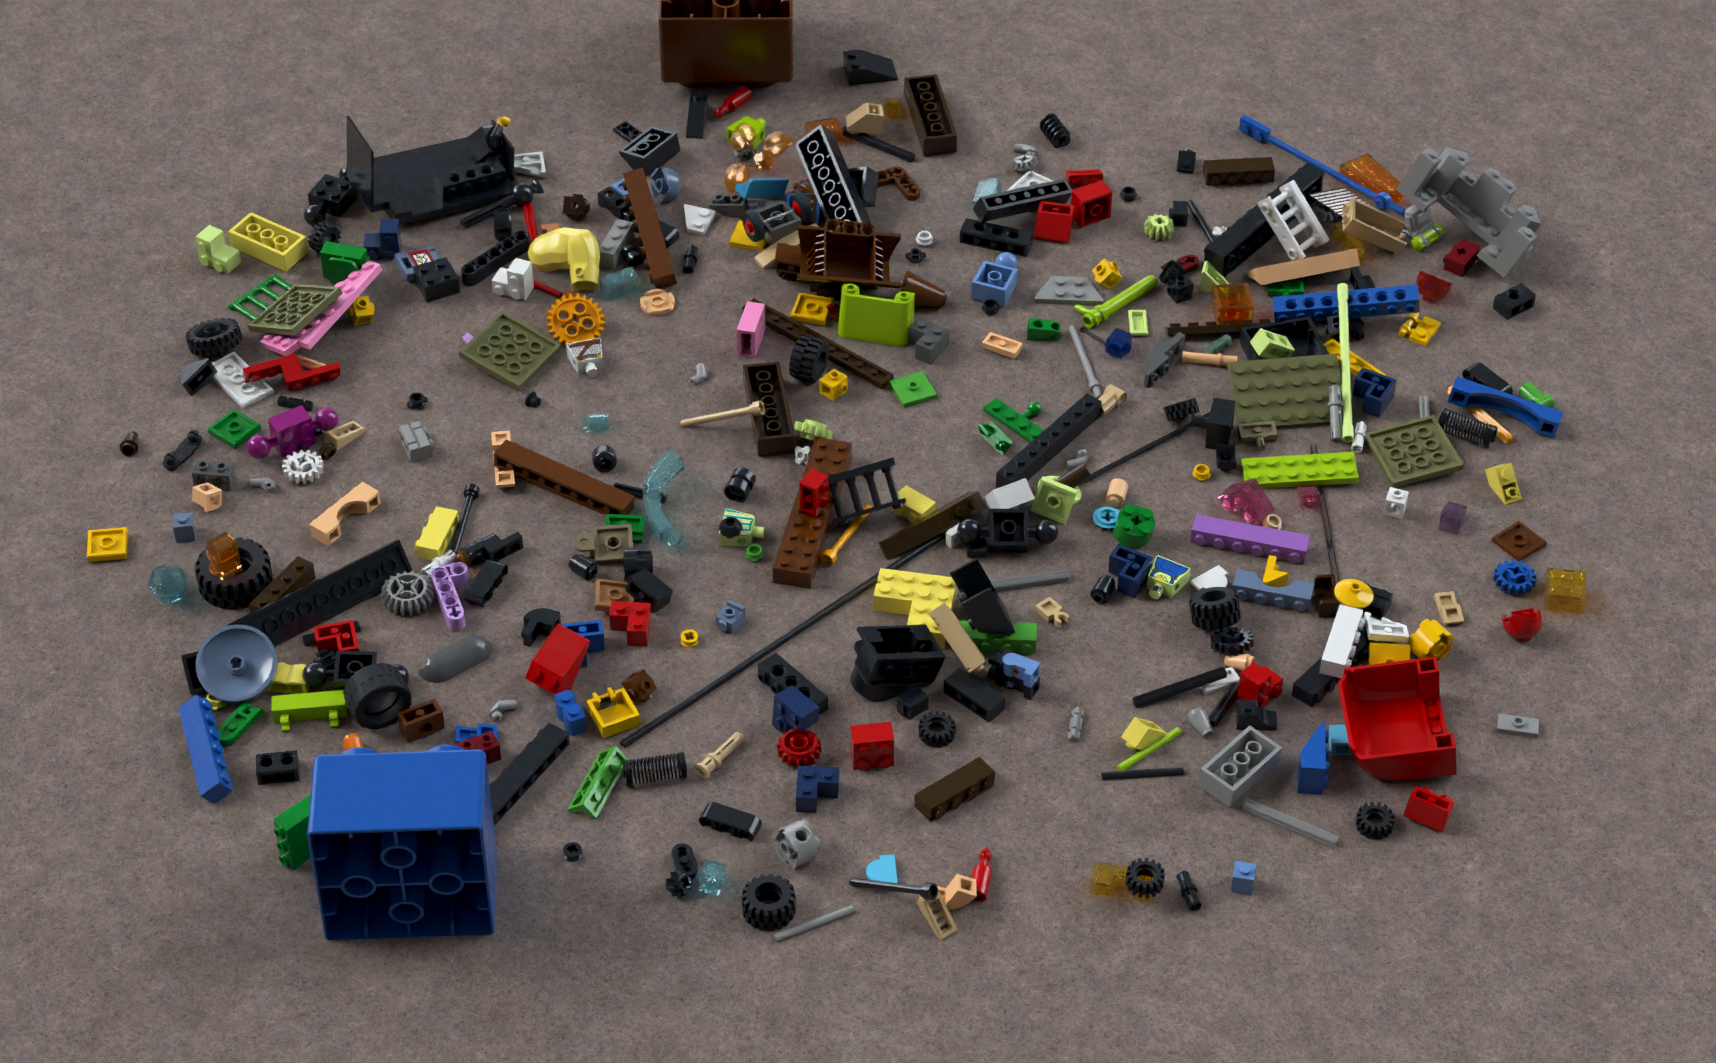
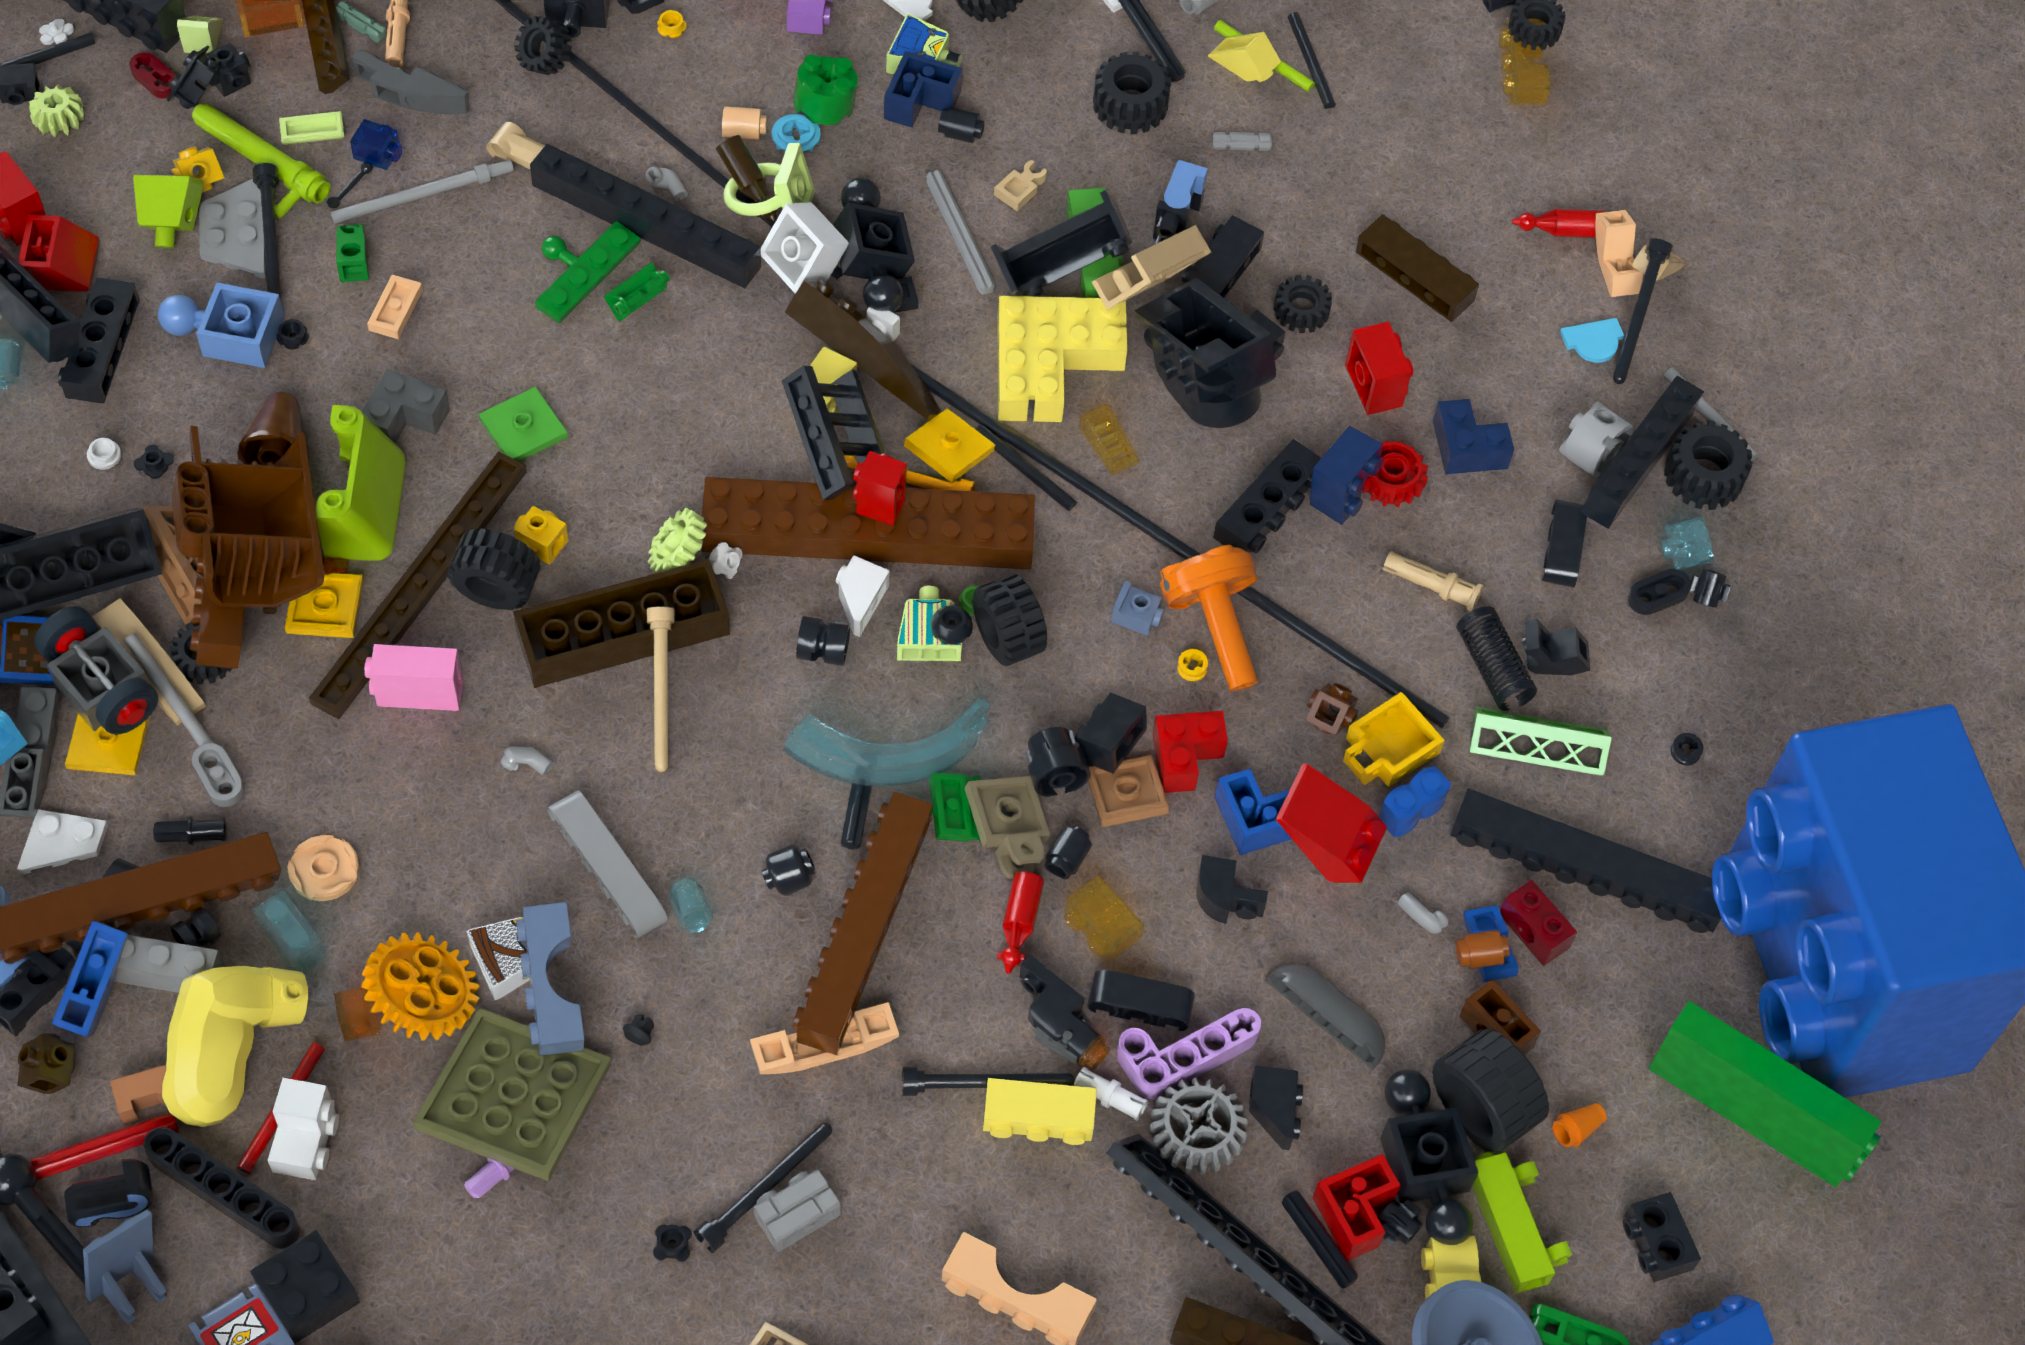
camera: 105 degrees left, 15 degrees up
(414, 624) = (1274, 1101): none -> black slope
(415, 413) = (716, 1230): none -> black piece
(467, 217) = (117, 1255): none -> sand blue plate
(467, 721) = (1482, 949): none -> dark orange brick
(538, 574) = (1103, 919): none -> clear yellow brick
(539, 359) = (557, 1021): none -> sand blue arch
(551, 543) = (1020, 916): none -> red wheel
(603, 214) = (91, 980): none -> blue slope
(628, 394) = (609, 863): none -> light grey beam
(653, 794) = (1555, 653): none -> black brick
(718, 268) = (219, 776): none -> light grey plate
(728, 551) = (1010, 619): none -> black tyre
(730, 637) = (1211, 581): none -> orange piece
(766, 250) = (167, 690): none -> light grey bar
(767, 504) = (861, 591): none -> white slope
(781, 861) = (1642, 452): none -> black brick
(841, 589) = (1028, 469): none -> black bar
(858, 617) = (1102, 421): none -> clear yellow slope
(862, 554) = (949, 445): none -> yellow plate
(1080, 259) = (167, 205): none -> lime torso
(1095, 297) = (266, 177): none -> black piece
(1113, 680) = (1131, 110): none -> black tyre

